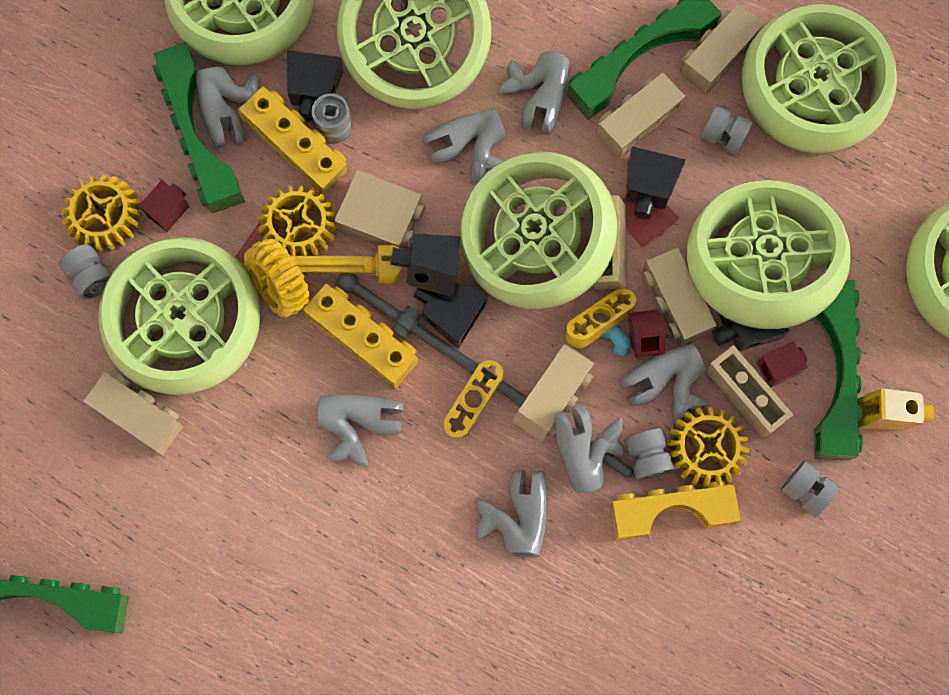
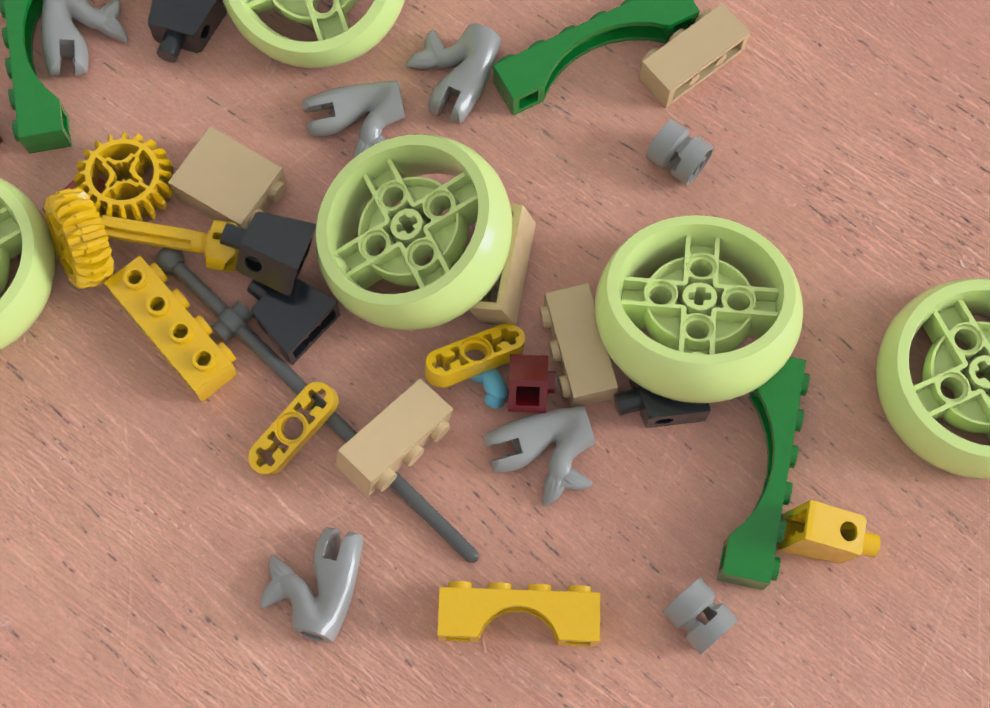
camera: 10 degrees right, 5 degrees down
(293, 140) = (143, 81): yellow brick -> none
(332, 118) = (196, 62): light grey wheel -> none
(365, 410) = (119, 413): light grey piece -> none
(580, 458) = (411, 539): light grey piece -> none
(640, 114) = (576, 117): tan brick -> none
(647, 229) = (561, 240): clear red piece -> none
(649, 454) = (500, 534): light grey wheel -> none
(651, 179) = (575, 198): black torso -> none
(696, 438) = (569, 526): yellow gear -> none
(748, 392) = (643, 478): tan brick -> none
(782, 364) = (696, 451): dark red brick -> none
(844, 40) = (827, 61): yellowish green wheel -> none

